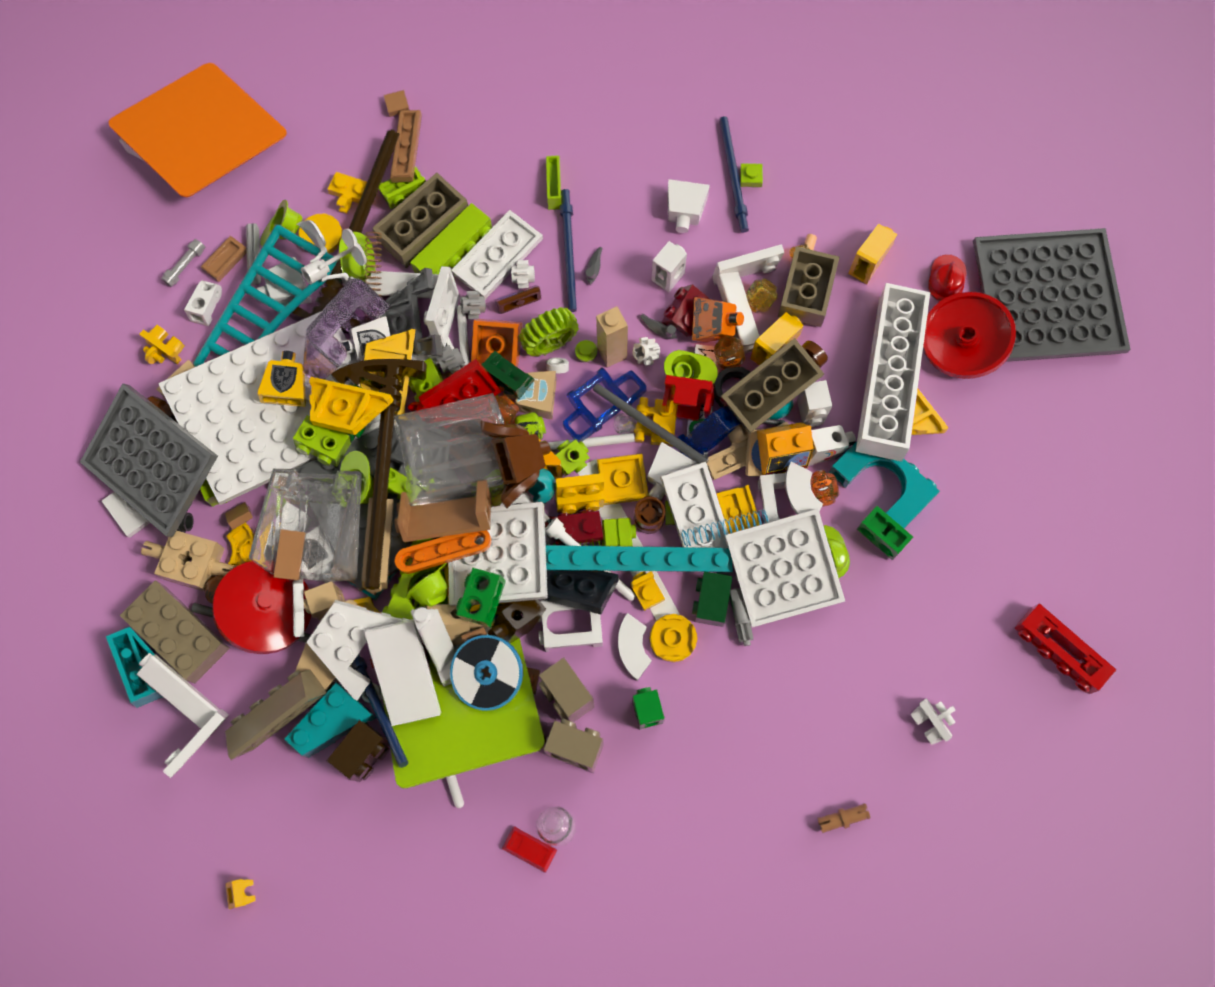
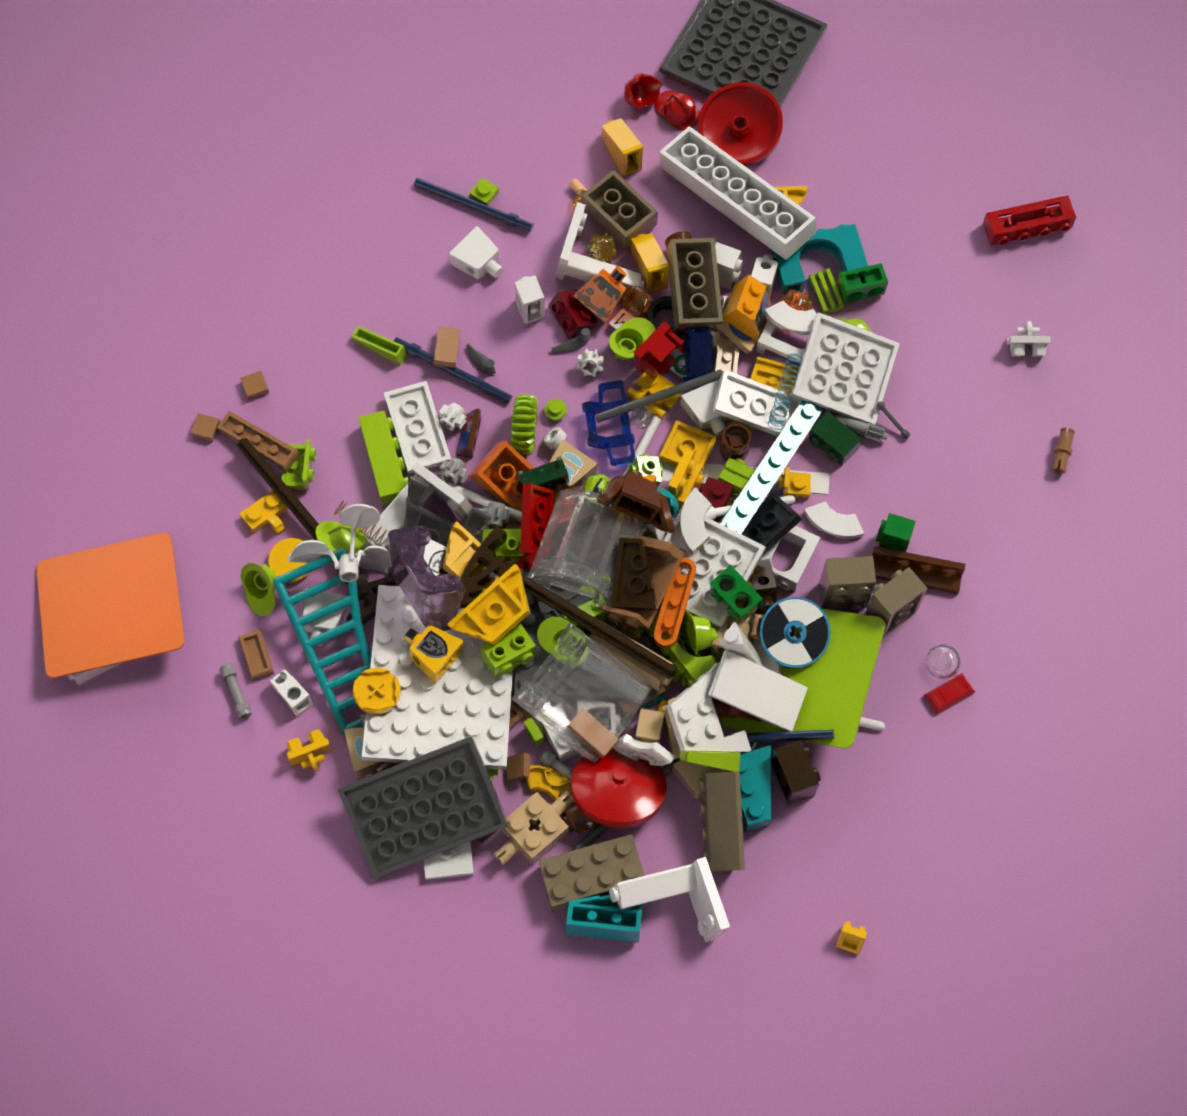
camera: 60 degrees left, 5 degrees down
(222, 359) = (376, 691): none -> yellow tile
(253, 248) = (268, 626): light grey axle -> none
(316, 670) = (719, 759): none -> lime piece
(419, 219) = (343, 464): dark tan brick -> none
(439, 500) = (633, 577): none -> dark brown wing
(456, 114) = (254, 385): none -> medium nougat tile
(530, 519) = (693, 519): none -> white tile
(584, 231) = (446, 346): none -> medium nougat tile
(612, 336) = (569, 374): tan brick -> none
(629, 749) = (933, 572): none -> reddish brown fence
(673, 638) = (846, 488): yellow tile -> none
(771, 621) = (881, 406): none -> dark grey hinge
(869, 493) = (821, 276): none -> lime tile
(939, 236) = (642, 91): none -> red hair

